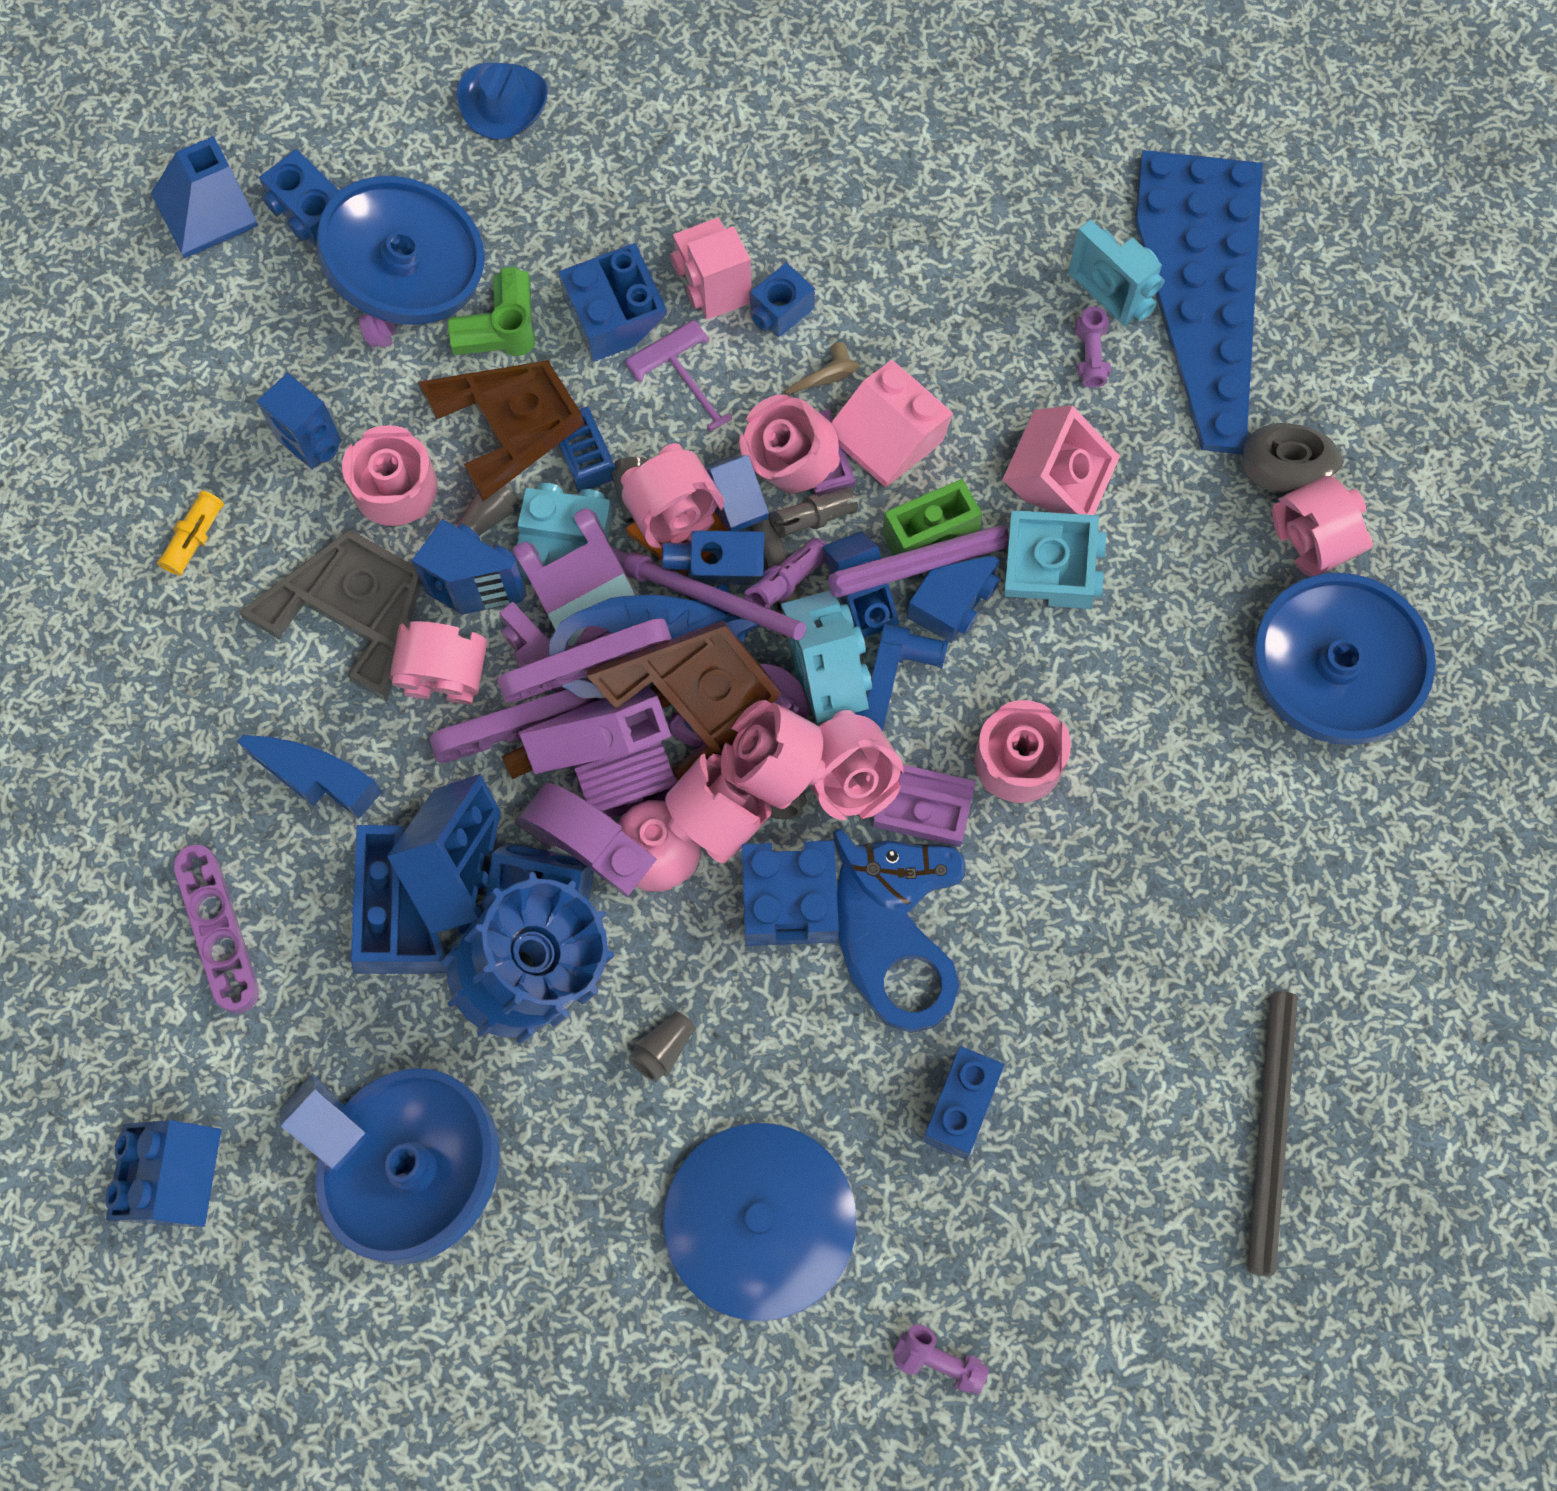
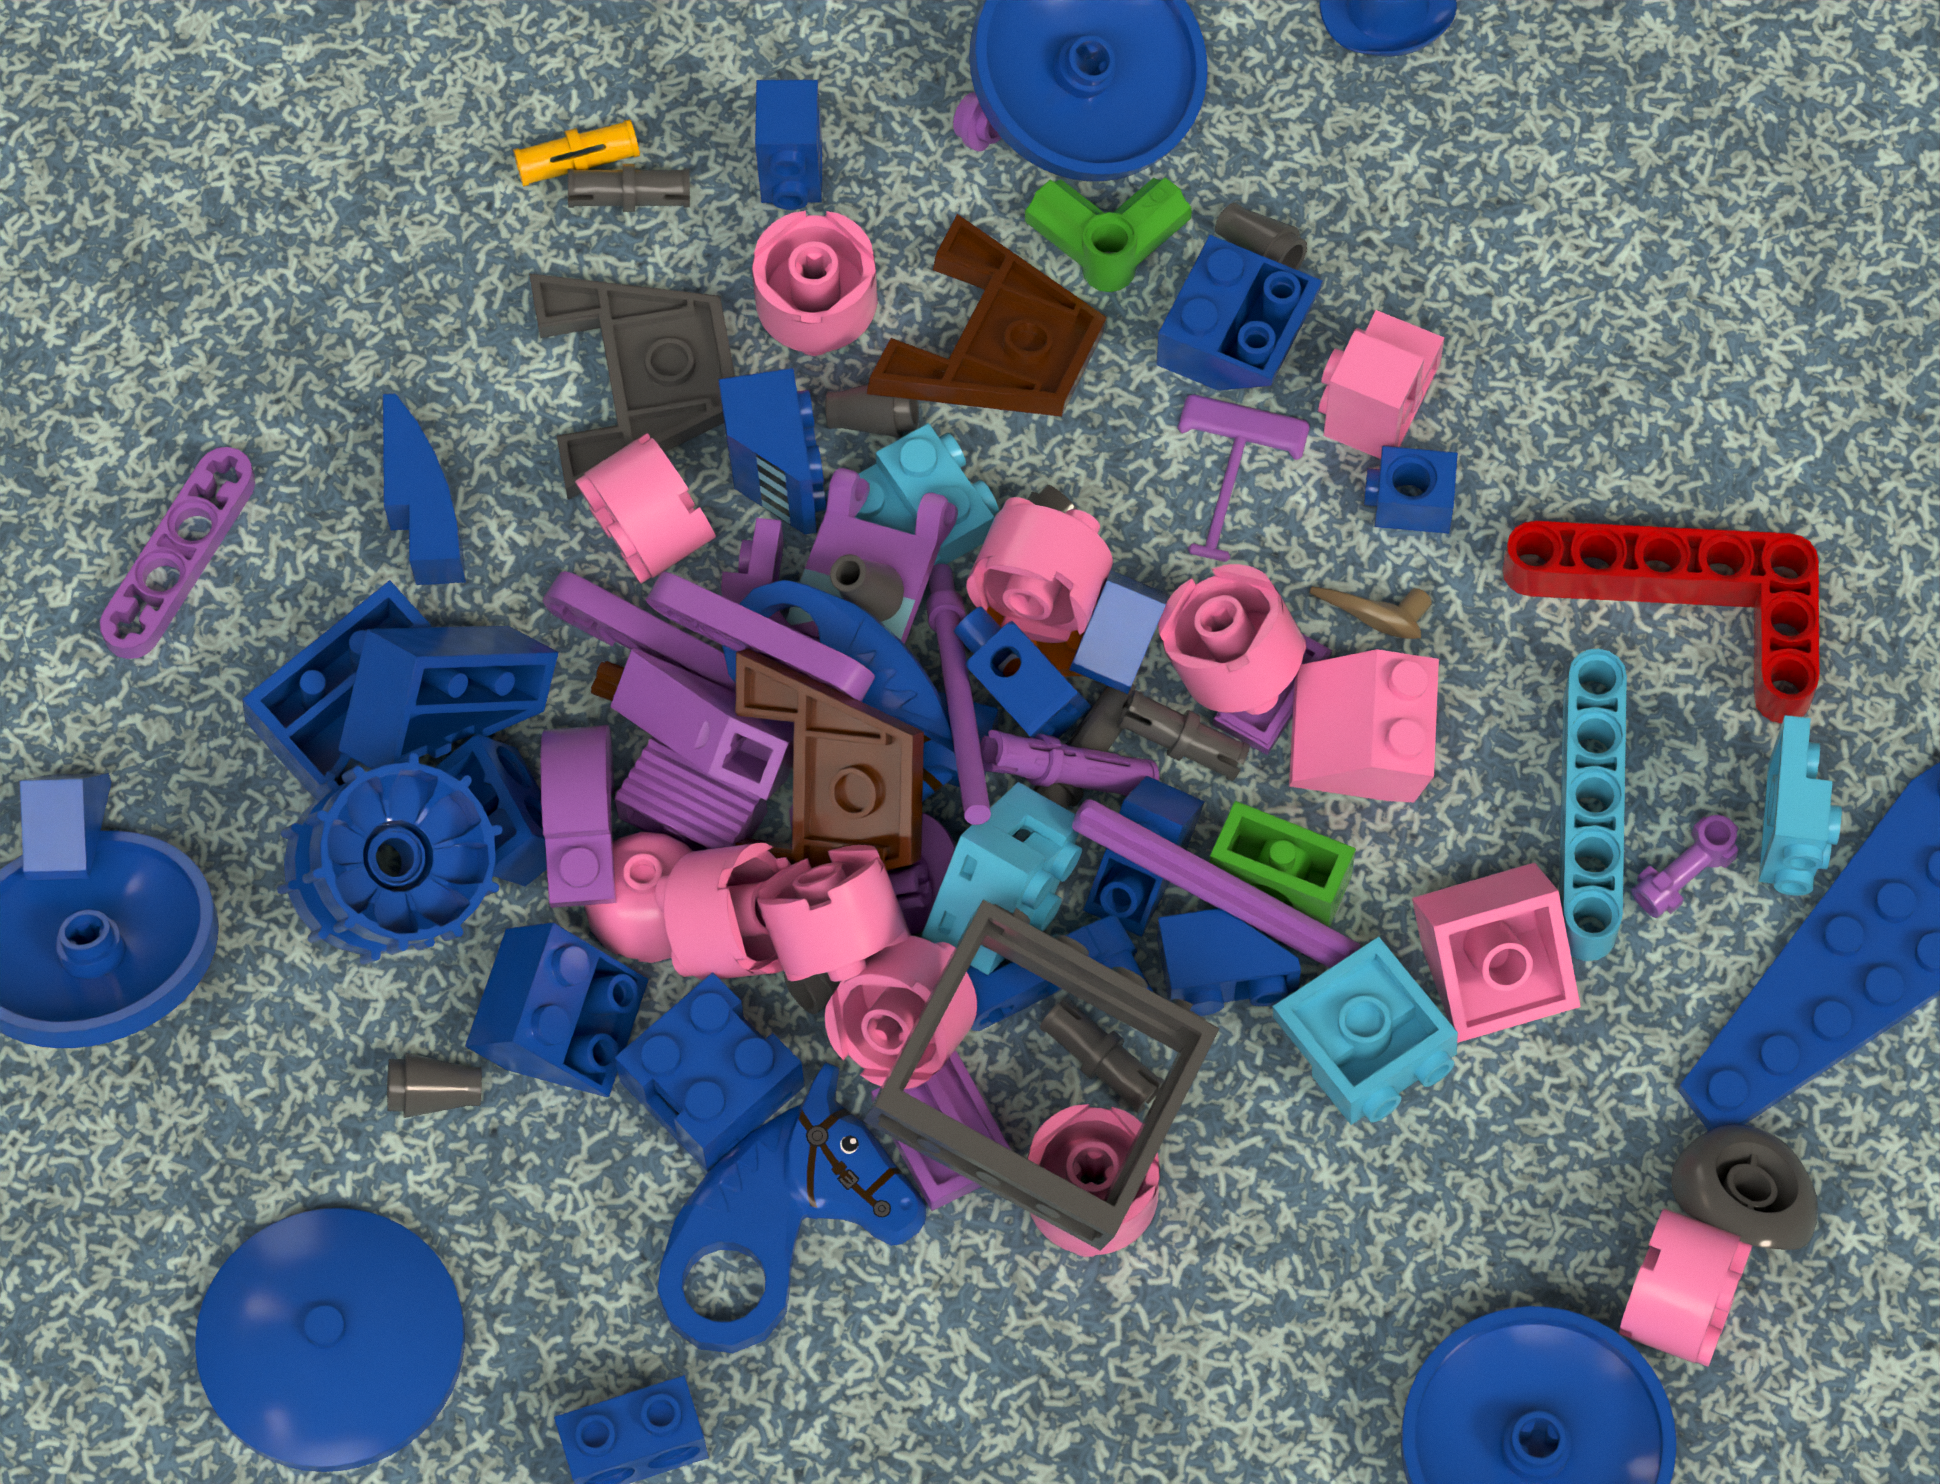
camera: 50 degrees right, 5 degrees down
(238, 524) = (629, 188): none -> dark grey pin
(572, 254) = (1262, 235): none -> dark grey cone
(594, 474) = (1021, 480): blue slope -> none
(609, 586) = (869, 585): none -> dark grey cone
(679, 944) = (556, 1009): none -> blue slope
(934, 213) = (1690, 582): none -> red beam
(951, 693) = (1101, 1054): none -> dark grey pin
(1019, 343) = (1598, 777): none -> medium azure beam
(1058, 732) = (999, 1168): none -> dark grey window

